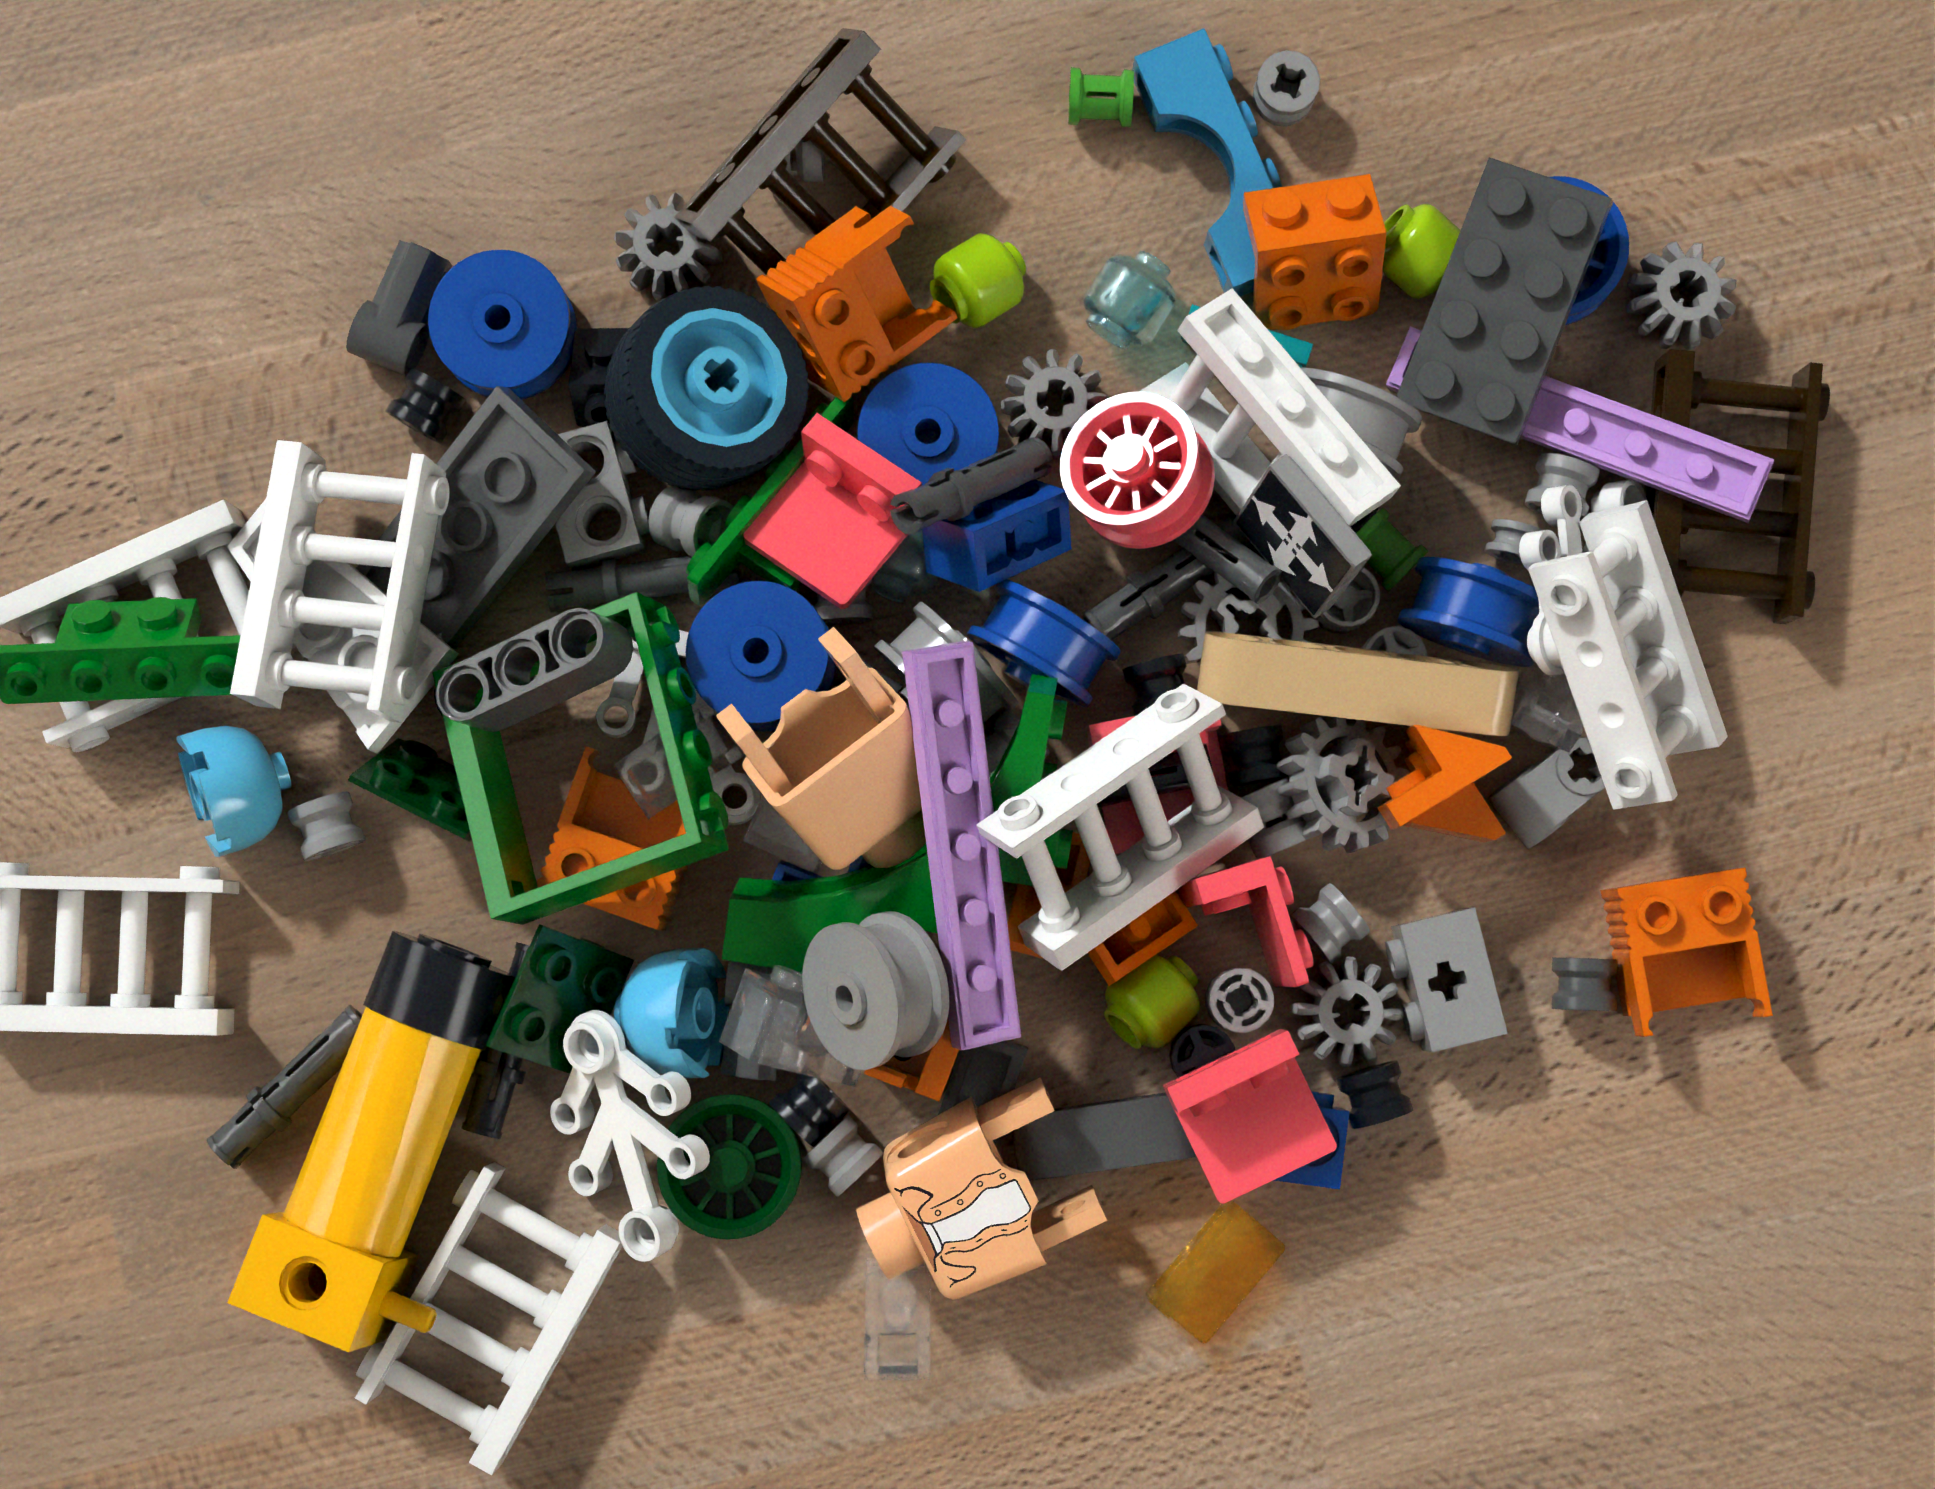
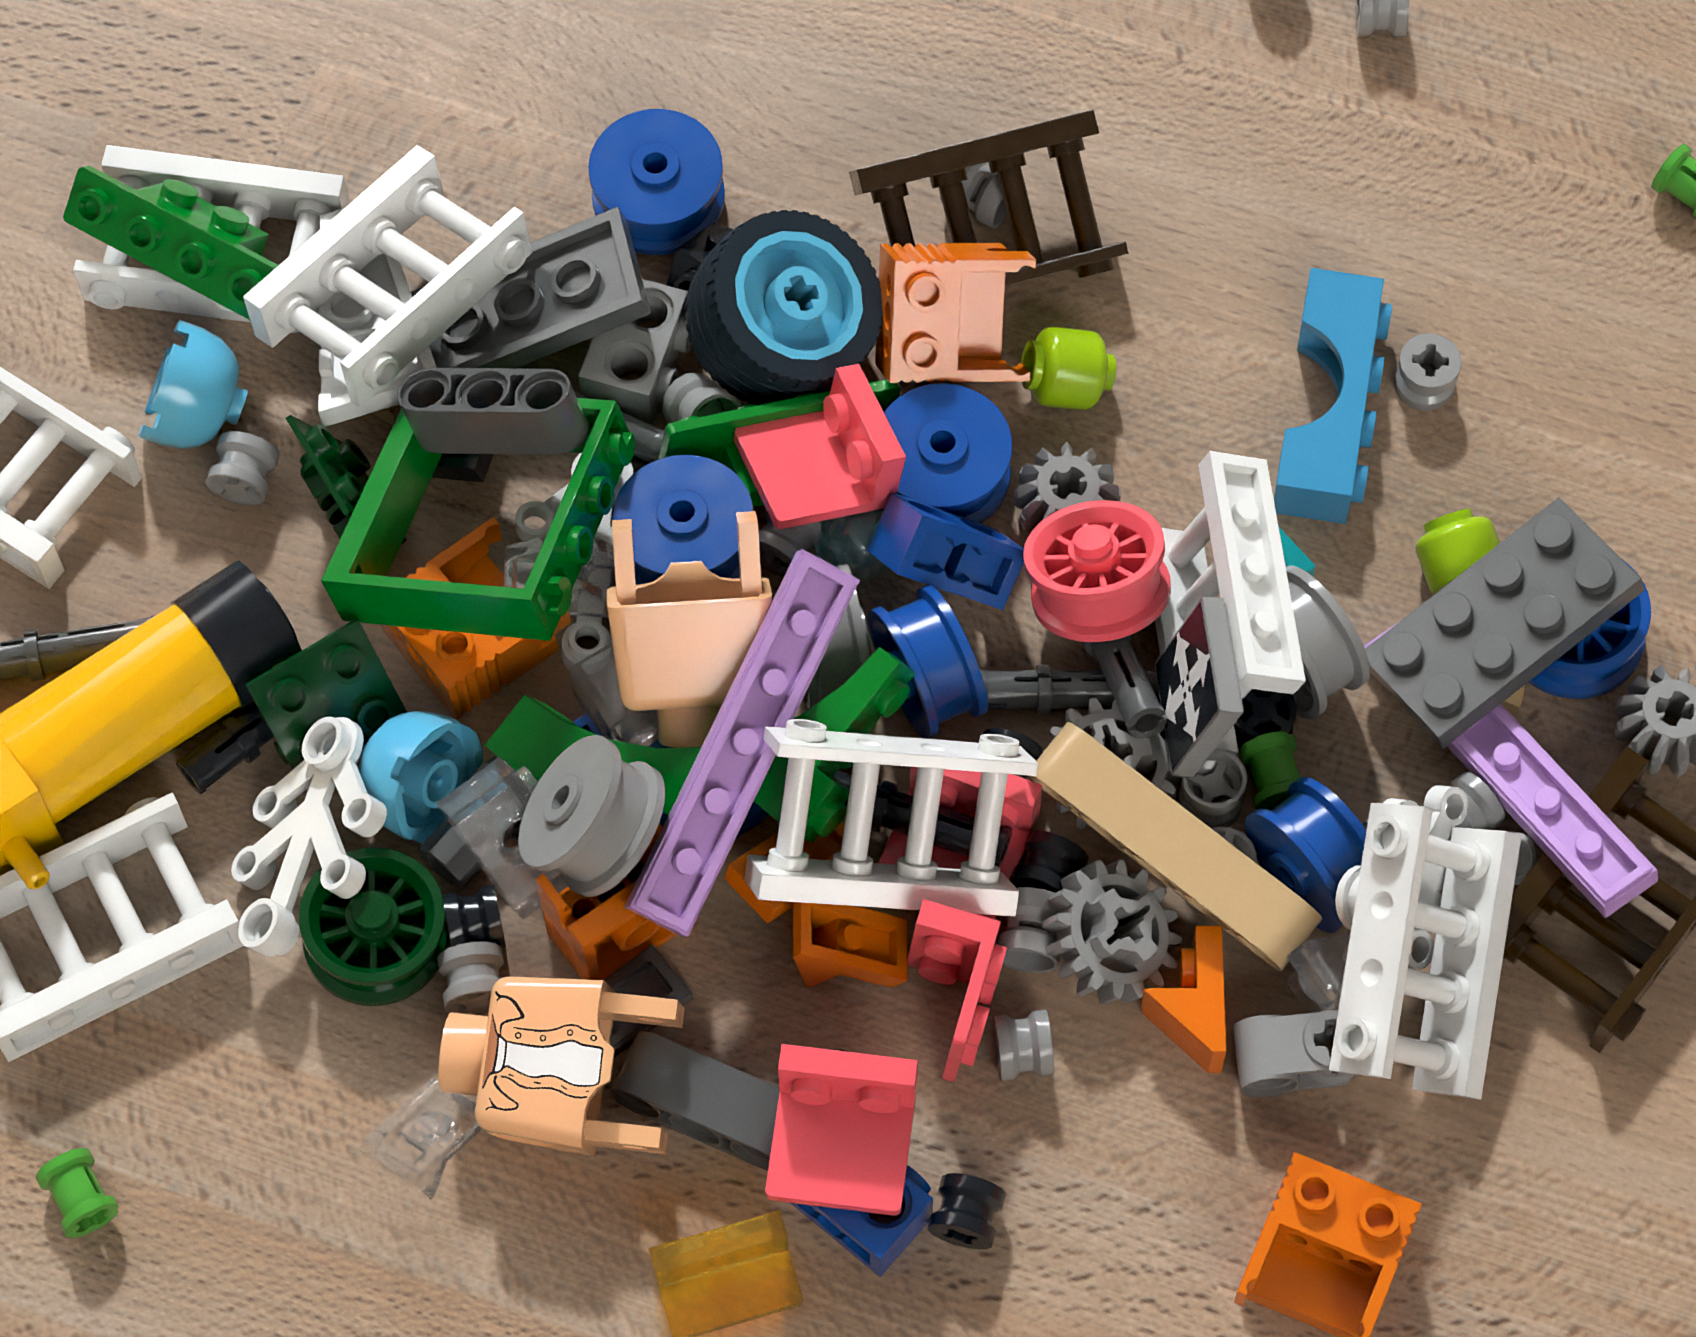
camera: 30 degrees right, 20 degrees down
(394, 325) = (565, 136): dark grey piece -> none
(425, 405) = (552, 205): black wheel -> none
(664, 268) = (829, 193): light grey gear -> none
(956, 492) = (928, 484): dark grey pin -> none
(1100, 108) = (1265, 291): bright green bush -> none
(1129, 299) = (1176, 446): clear light blue head -> none
(1153, 1002) = (825, 1011): lime head -> none
(1230, 995) = (910, 1035): light grey wheel -> none
(1316, 251) = (1363, 500): orange bracket -> none
(1348, 1033) = (1000, 1107): light grey gear -> none
(1453, 764) = (1213, 960): orange slope -> none
(1472, 1003) = (1094, 1192): light grey brick -> none
(1584, 984) = (1217, 1233): dark grey wheel -> none

